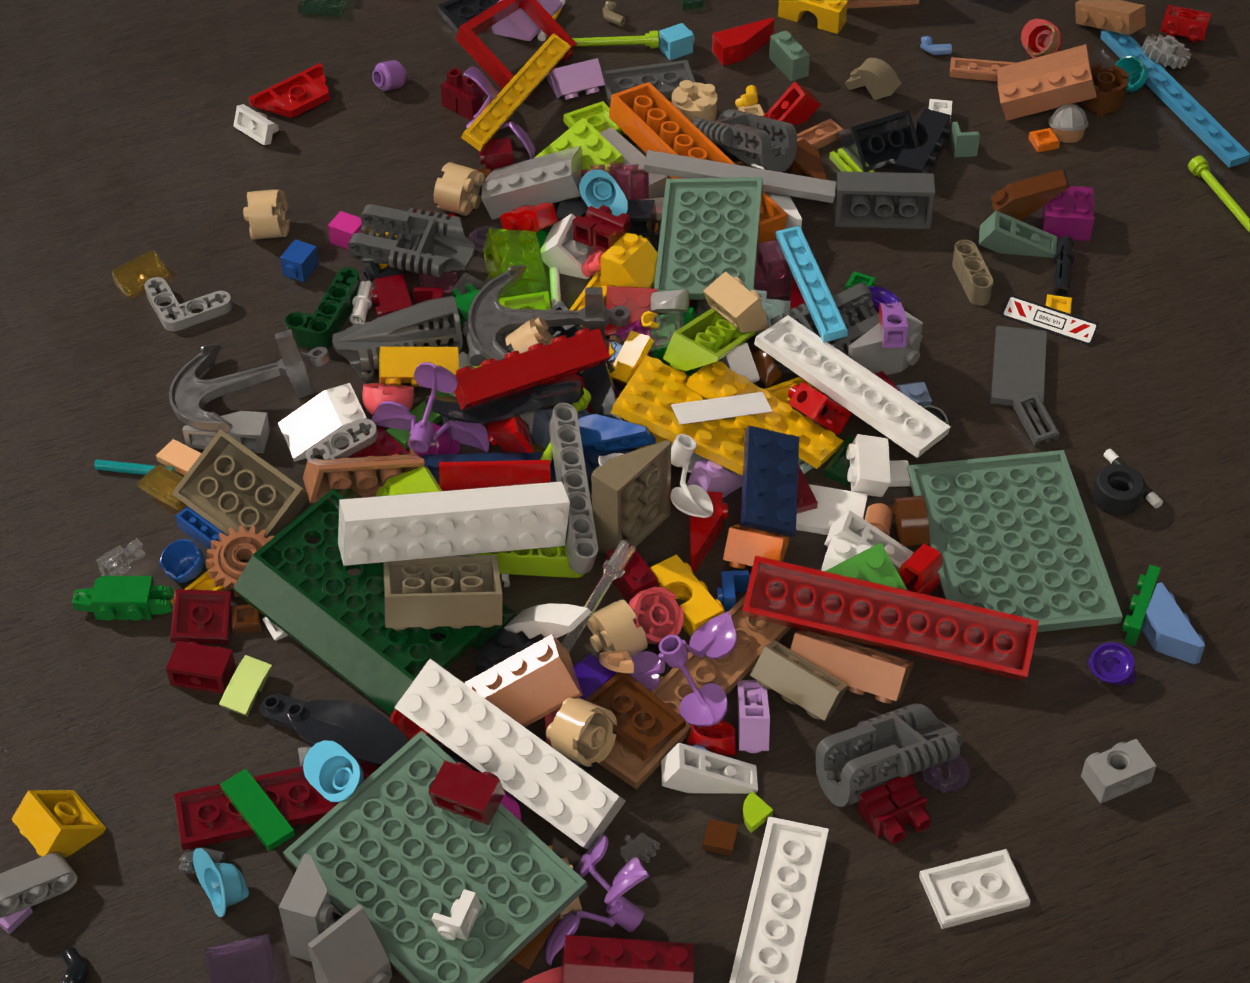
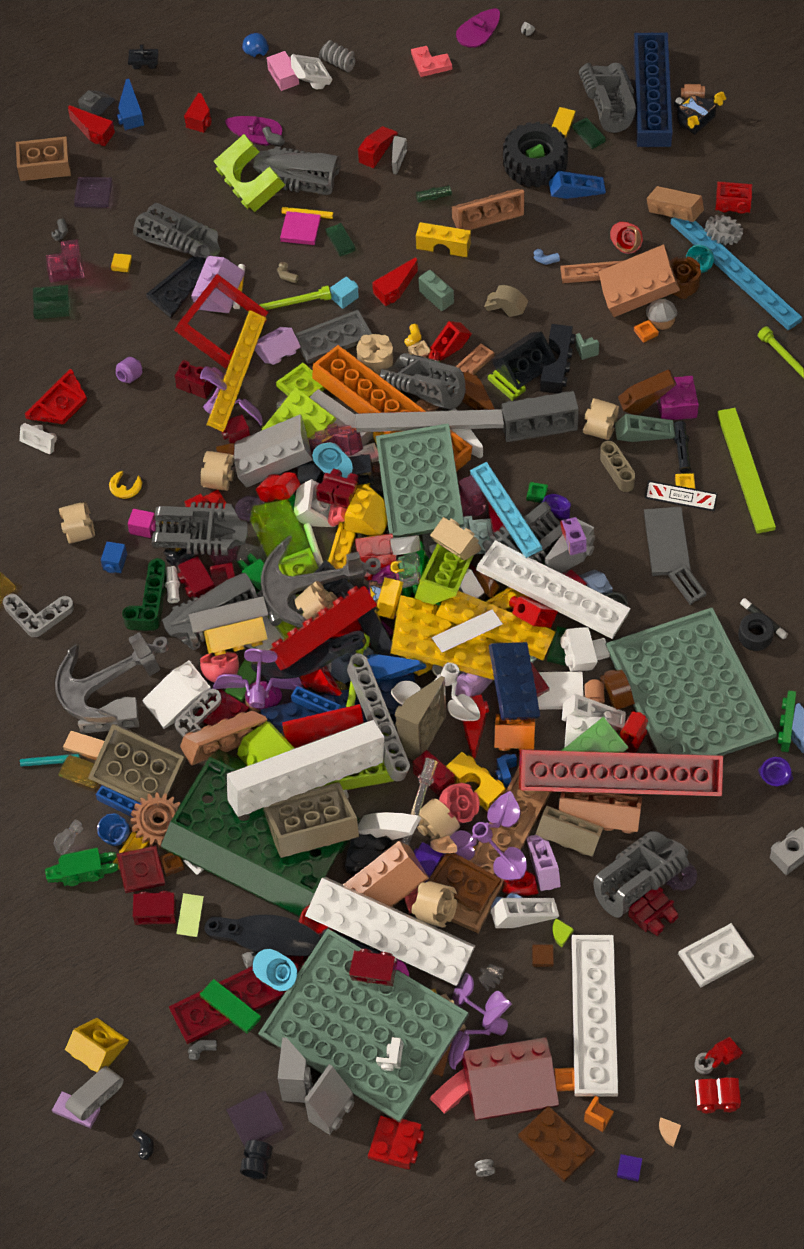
camera: 10 degrees left, 10 degrees up
(220, 881) = (221, 1062): medium azure piece -> none
(337, 197) = (122, 492): none -> yellow head
(415, 336) = (228, 614): none -> light grey tile
(486, 449) = (313, 701): none -> blue piece
(941, 106) = (562, 317): white plate -> none
(962, 215) = (601, 419): none -> tan brick
(1143, 309) = (746, 470): none -> lime tile

